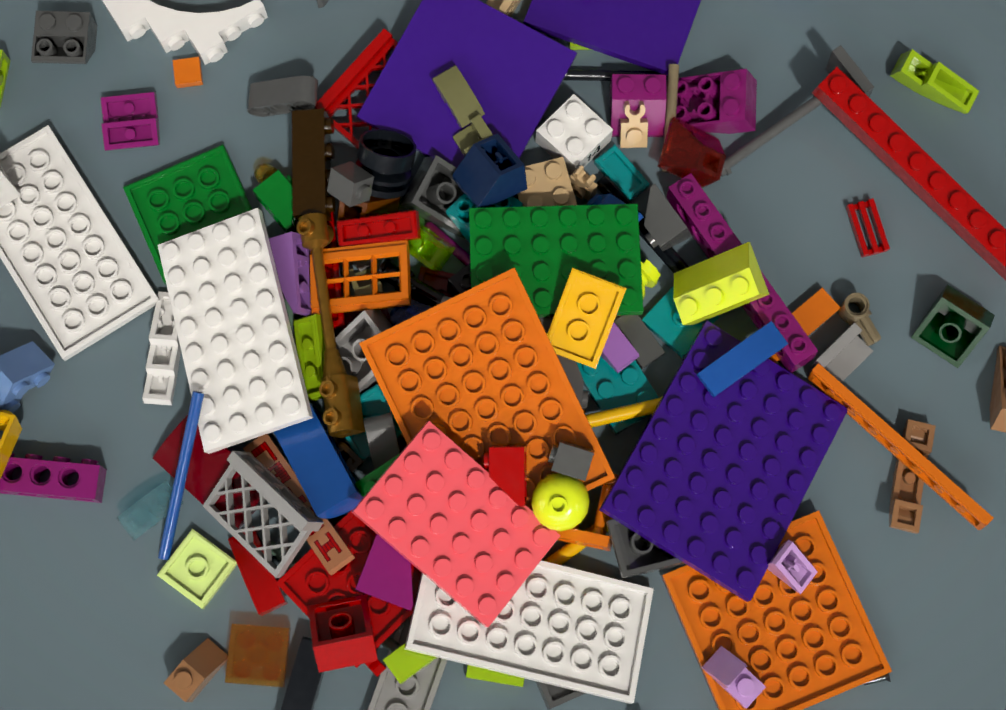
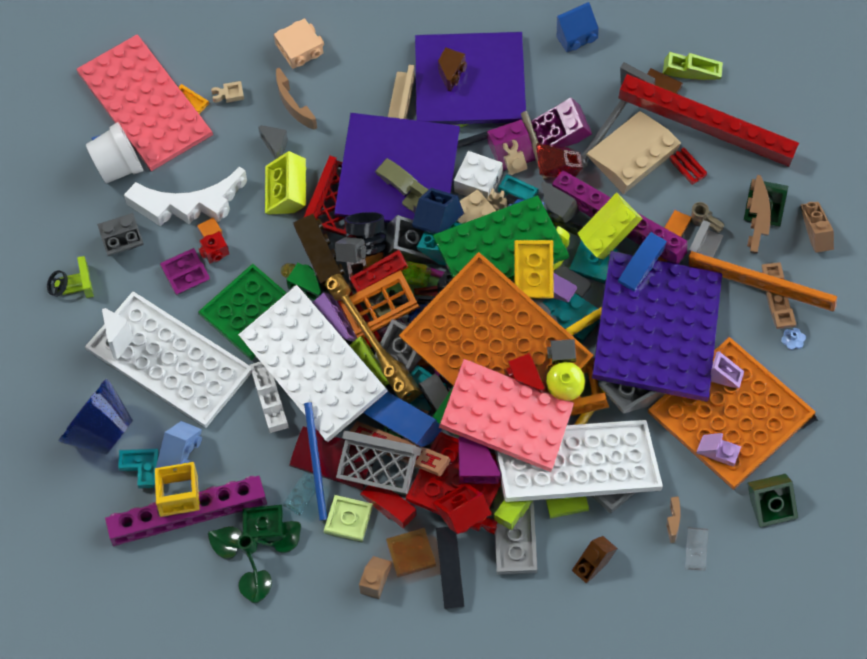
camera: 15 degrees left, 15 degrees down
(23, 538) = (229, 539): none -> dark green plant
(79, 534) = (264, 522): none -> dark green tile
(178, 103) = (213, 247): none -> red brick
(282, 96) = (280, 218): dark grey beam -> none
(313, 43) = (285, 184): none -> neon yellow slope
(801, 177) = (633, 151): none -> tan slope
(886, 92) = (665, 81): none -> reddish brown tile
(902, 549) = (793, 338): none -> light blue plant
(942, 338) = (759, 206): none -> medium nougat slope

